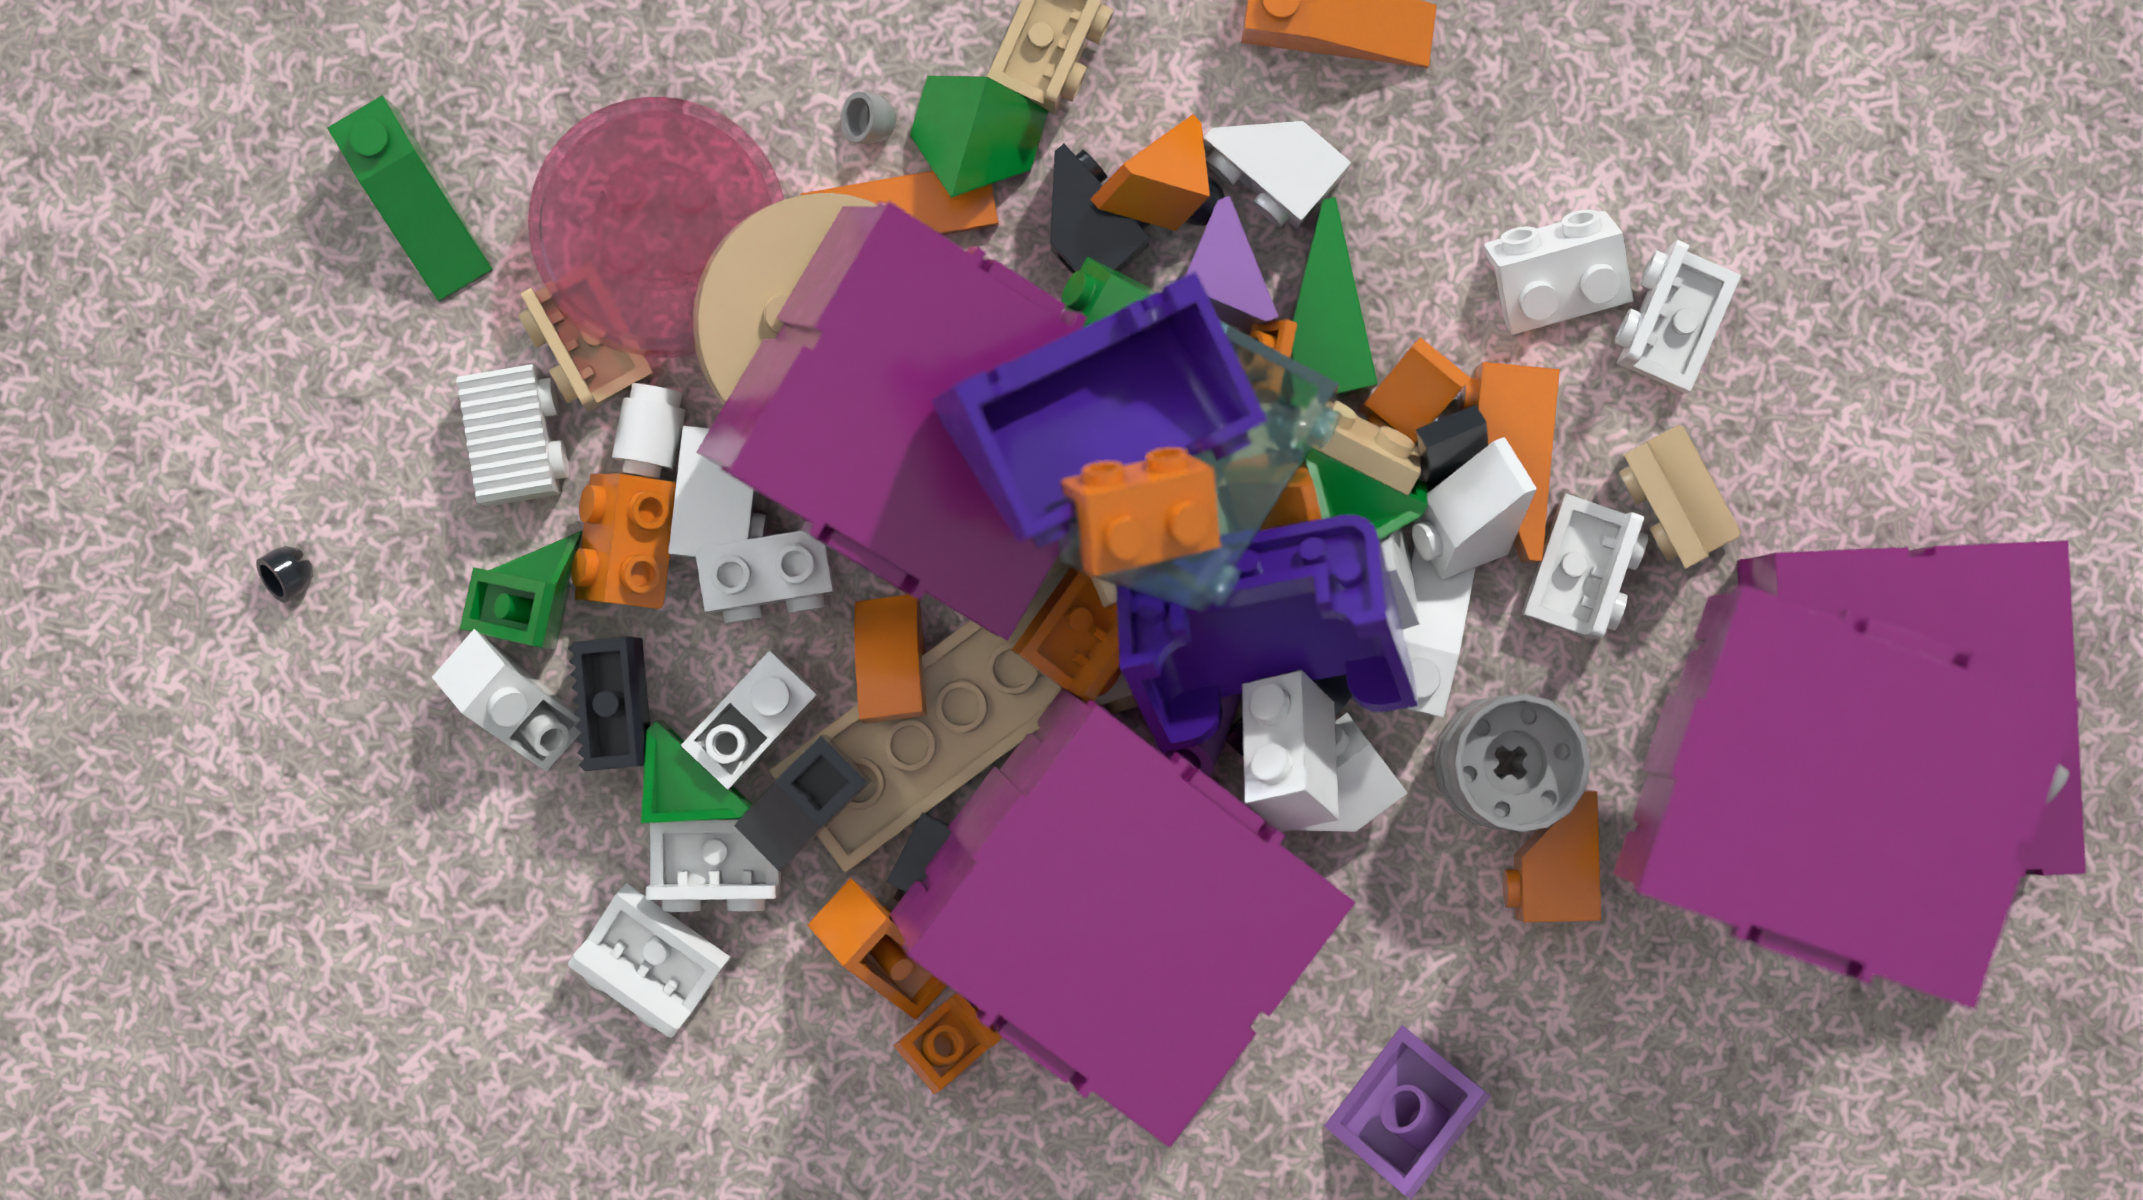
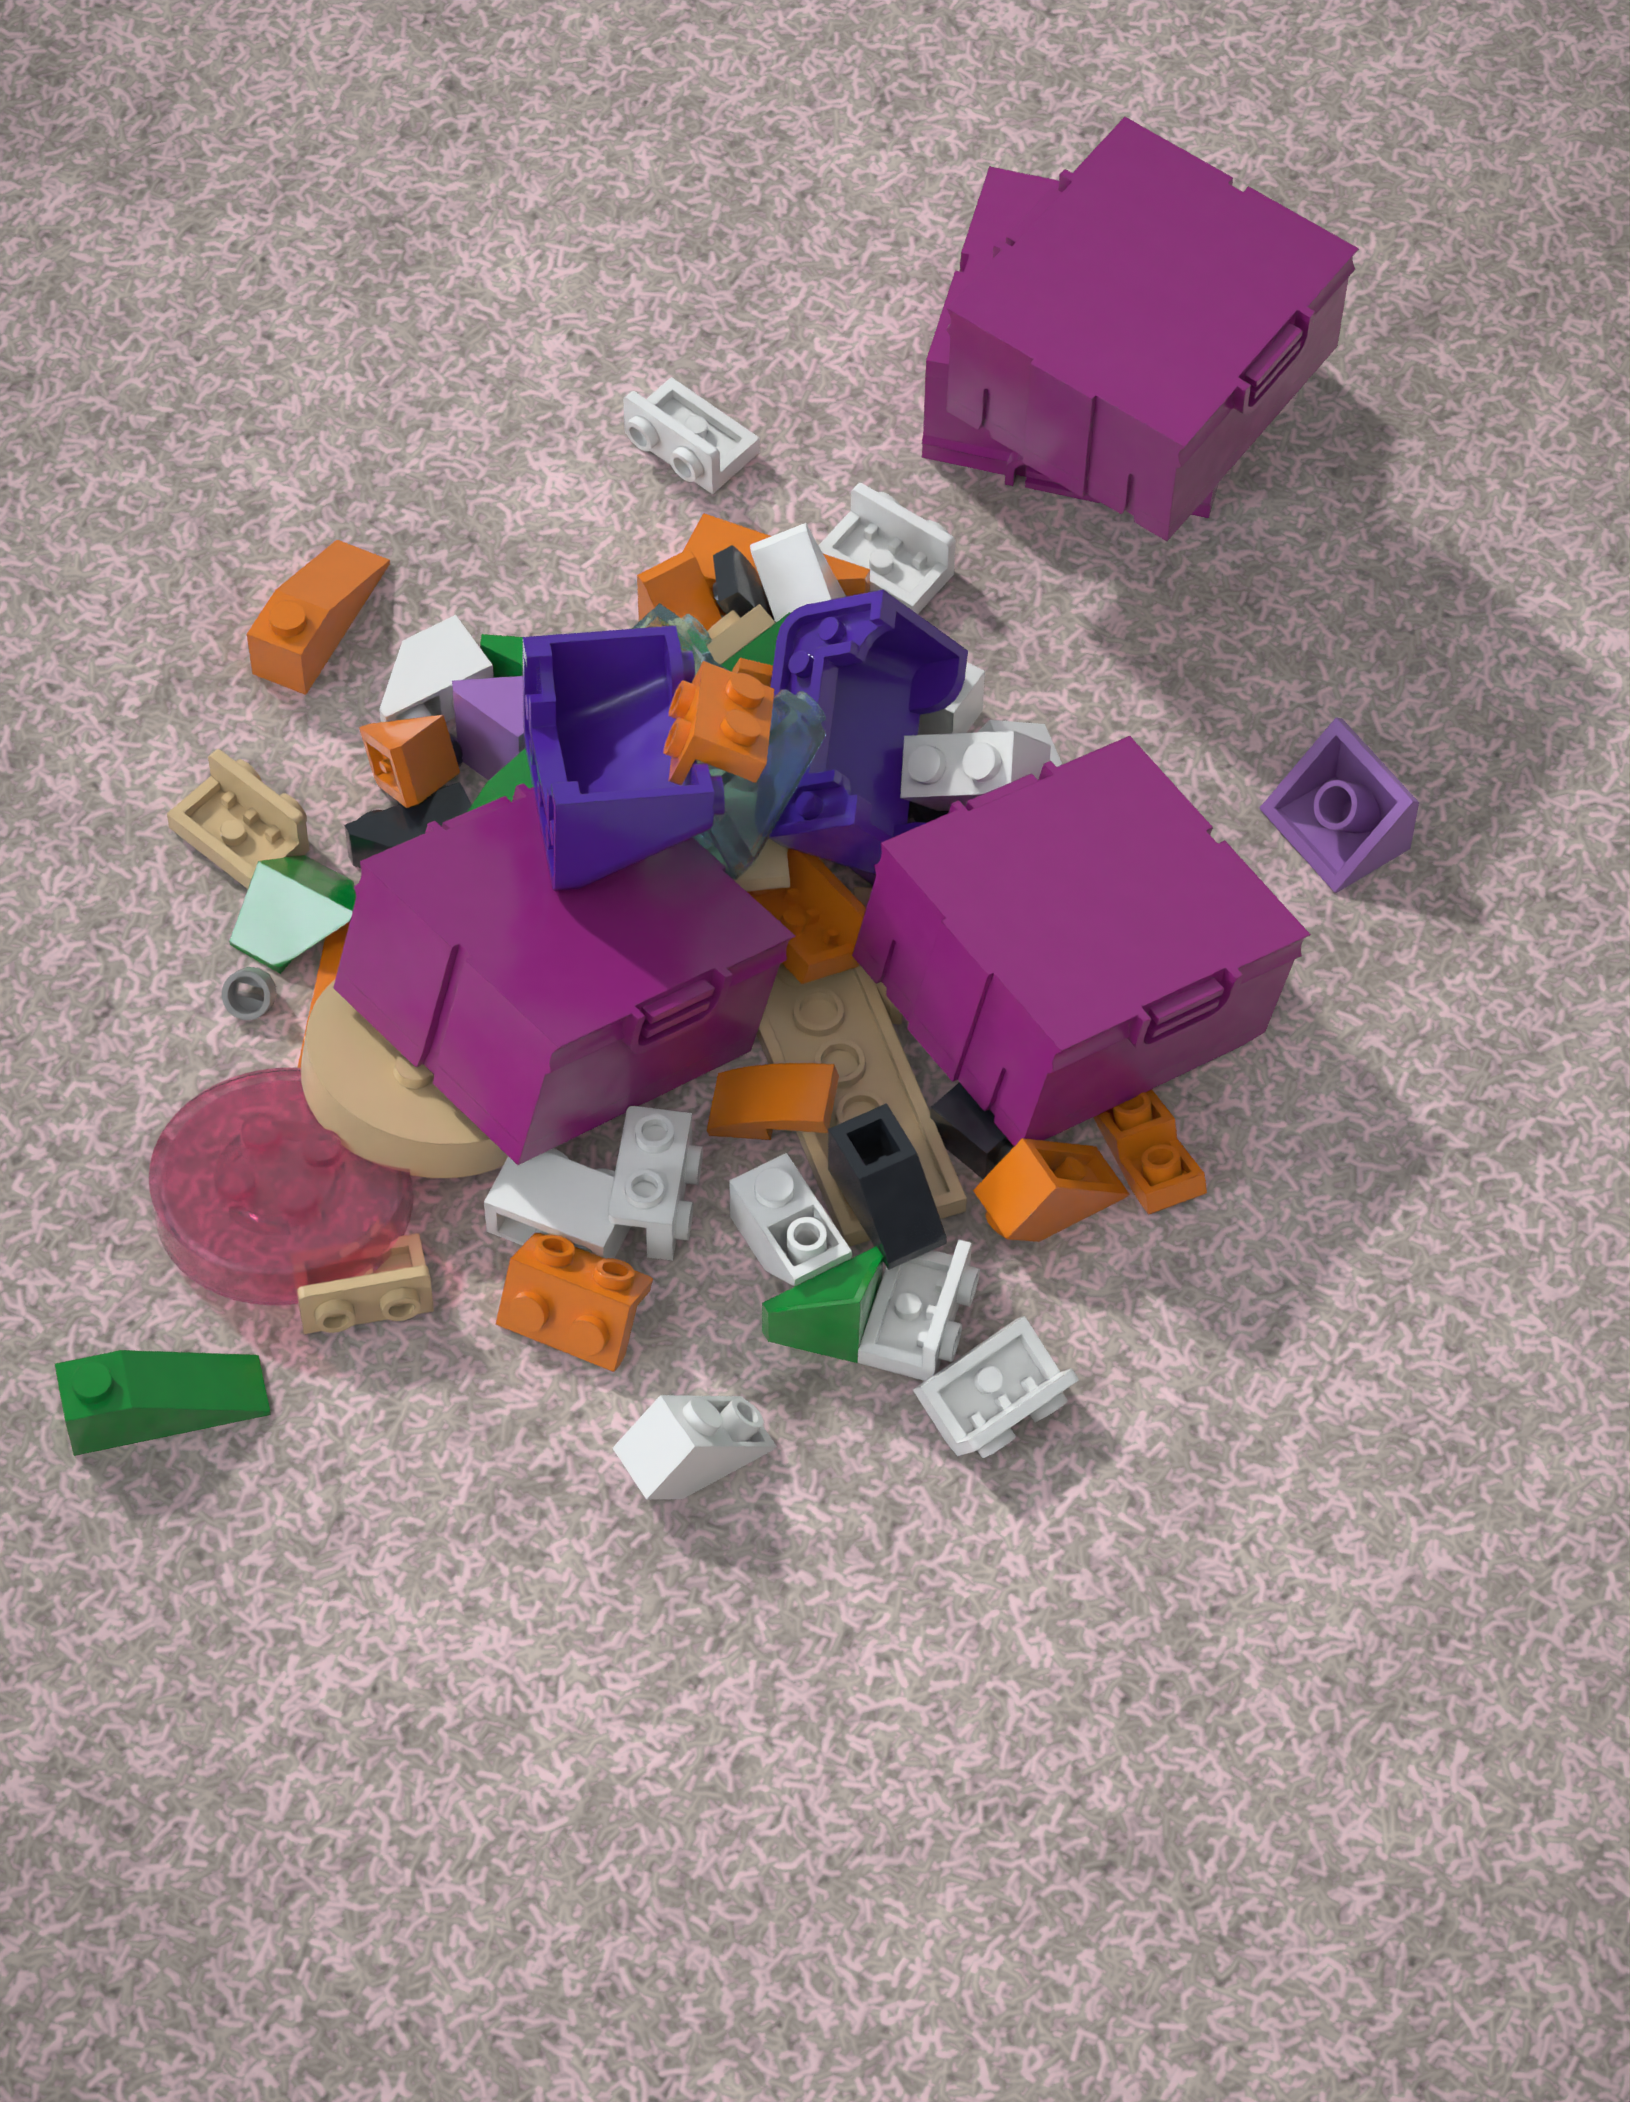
camera: 75 degrees left, 30 degrees down
(283, 573) = (475, 1629): black hinge -> none
(512, 435) = (431, 1370): white brick -> none
(524, 596) = (595, 1401): green slope -> none
(611, 702) = (731, 1344): black brick -> none
(649, 430) = (471, 1249): white brick -> none
(1548, 762) = (1044, 639): light grey wheel -> none
(1559, 869) = (1149, 638): orange slope -> none
(1560, 270) = (613, 506): white bracket -> none
(1682, 496) = (831, 472): tan bracket -> none

